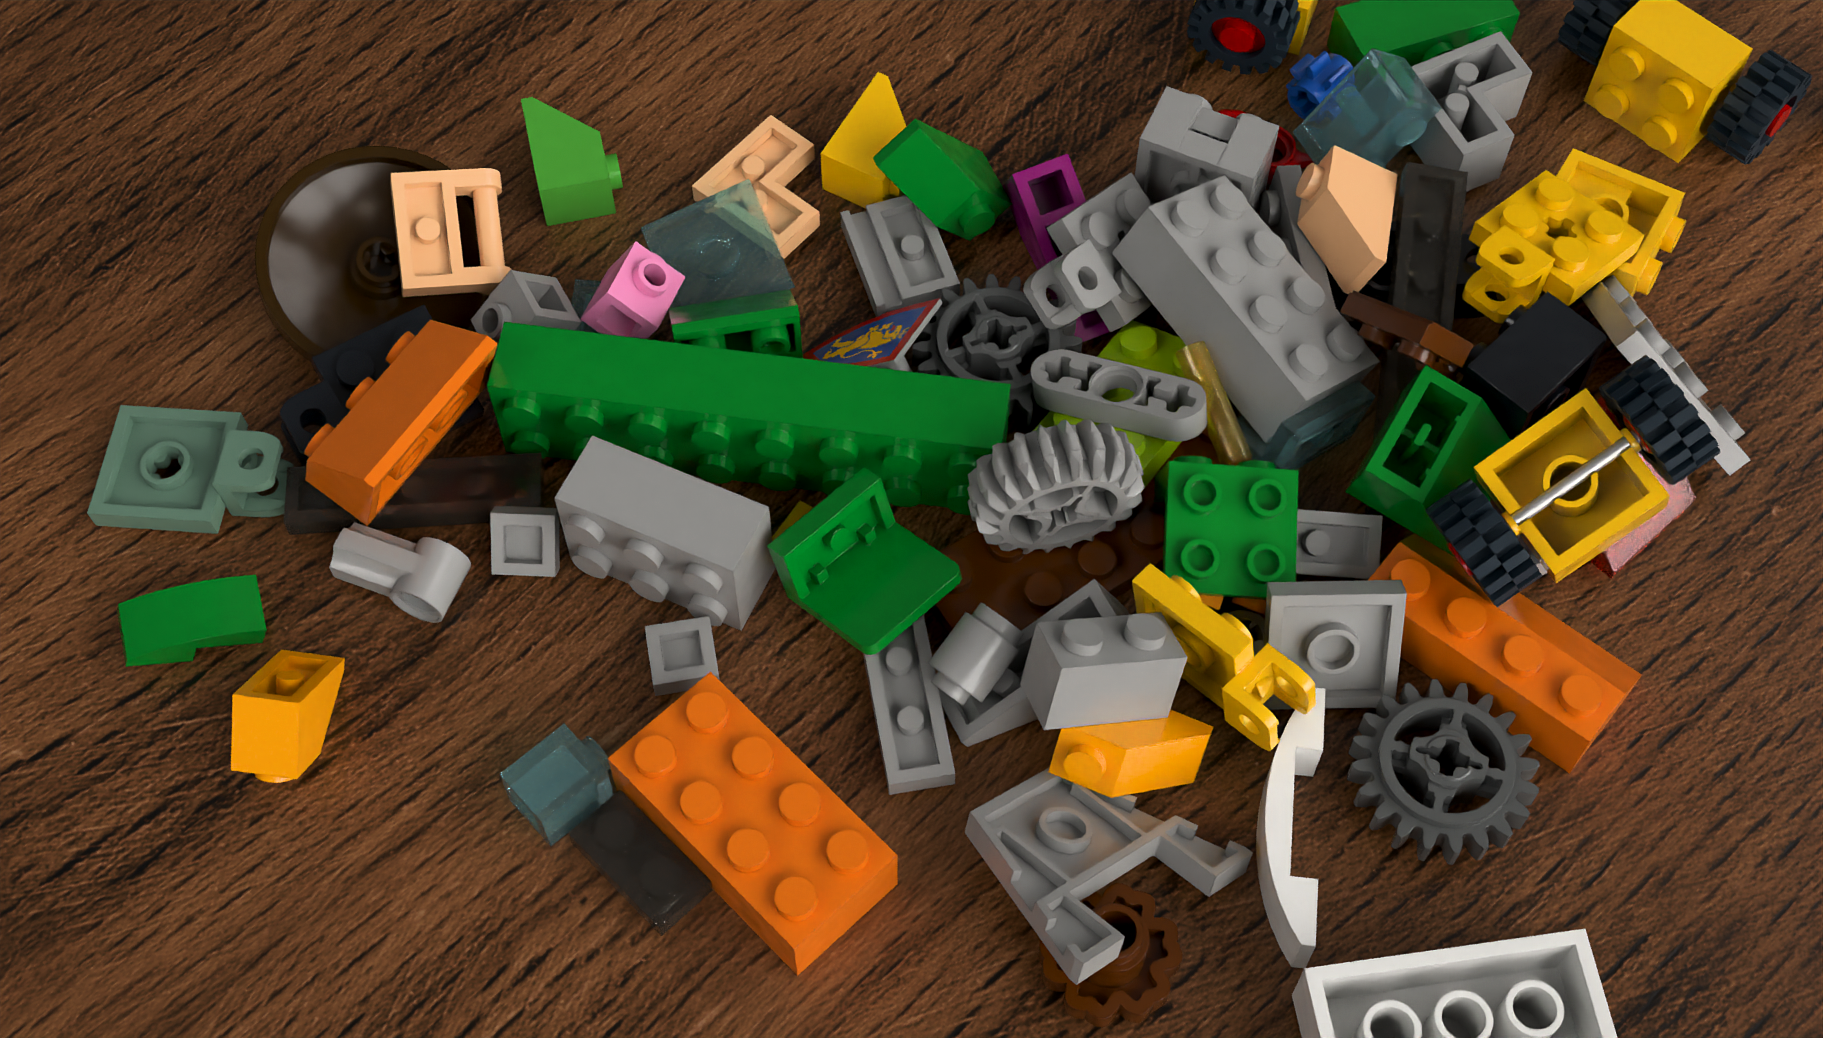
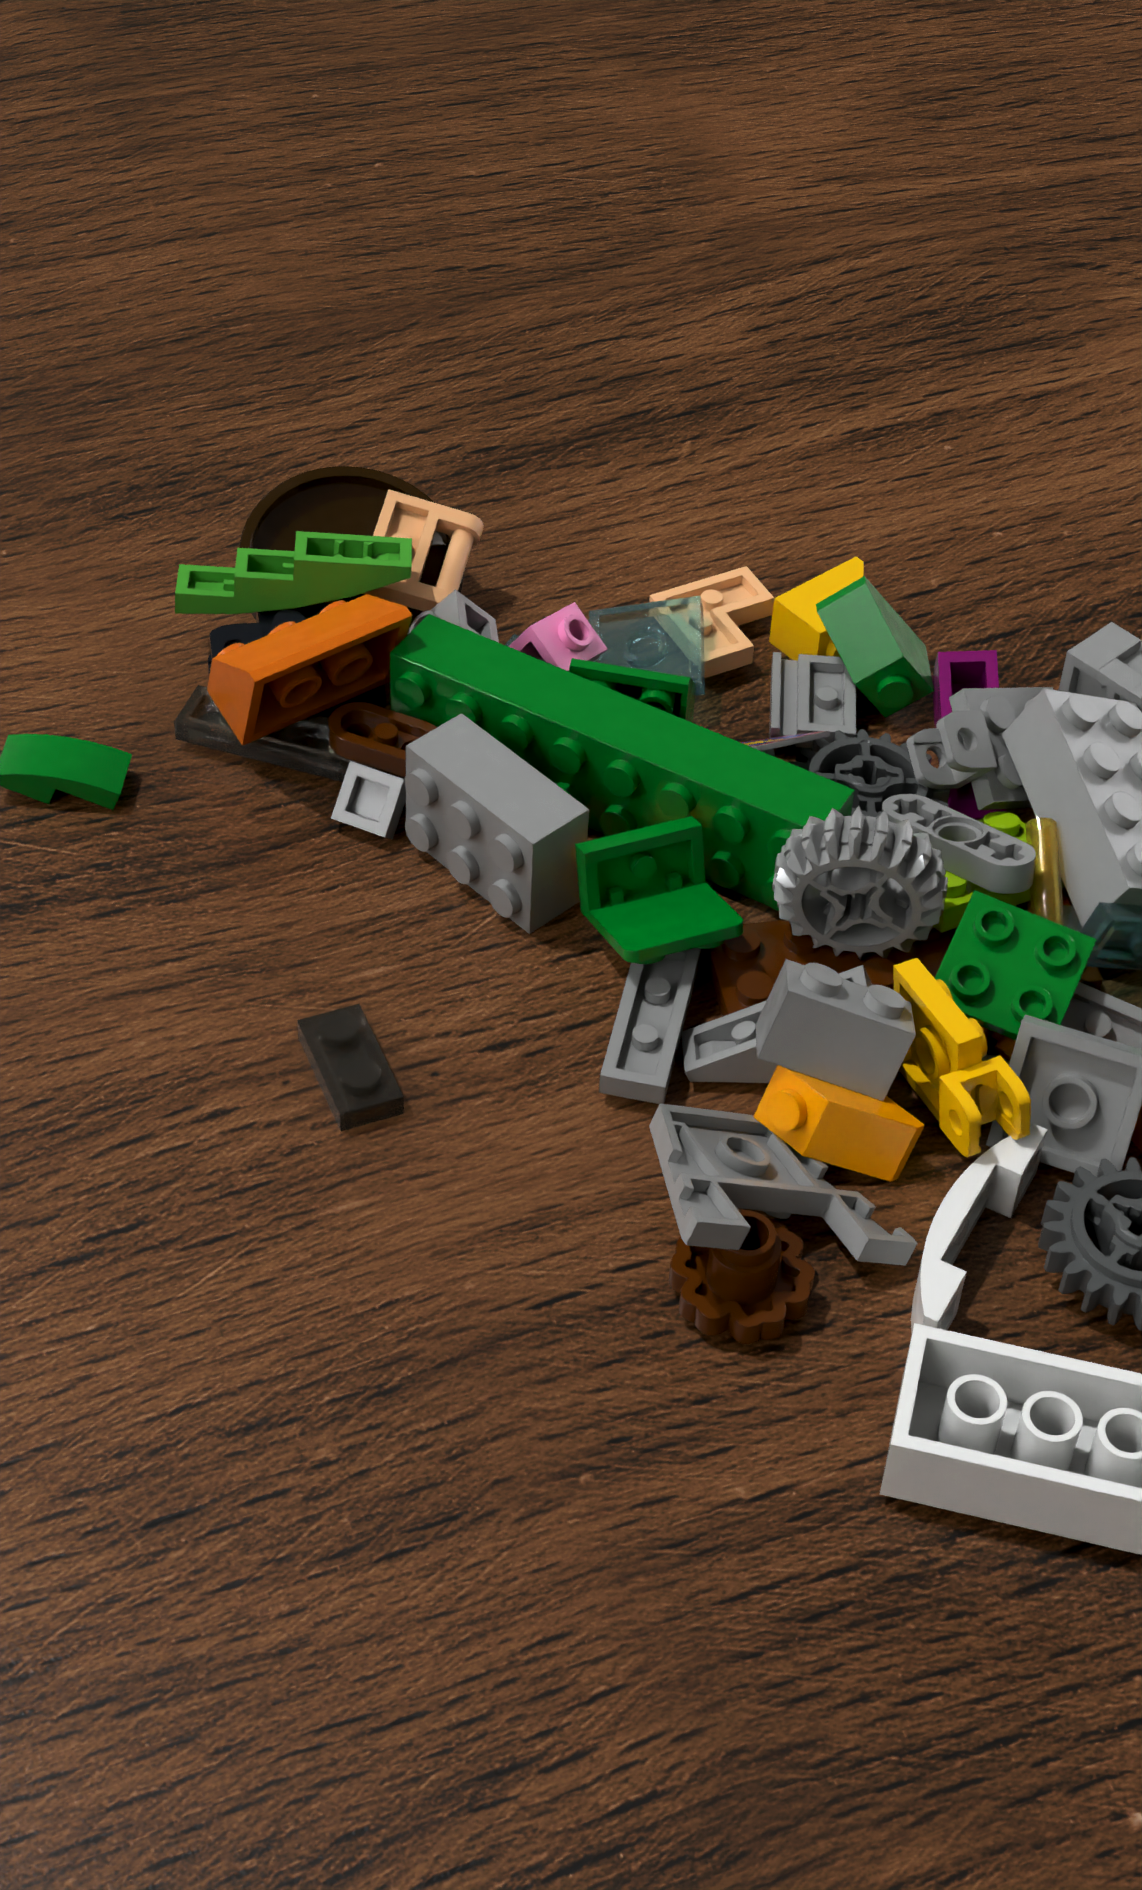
camera: 20 degrees right, 15 degrees down
(215, 471) = (112, 662): sand green plate -> none
(284, 715) = (100, 855): light orange slope -> none
(356, 304) = (317, 572): none -> bright green slope
(415, 576) = (263, 796): light grey piece -> none
(516, 468) = (374, 735): none -> reddish brown plate
(559, 783) = (306, 976): clear light blue brick -> none
(569, 165) = (549, 553): bright green slope -> none
(680, 654) = (465, 926): light grey plate -> none
(755, 822) = (466, 1064): orange brick -> none
(975, 654) = (725, 995): light grey brick -> none

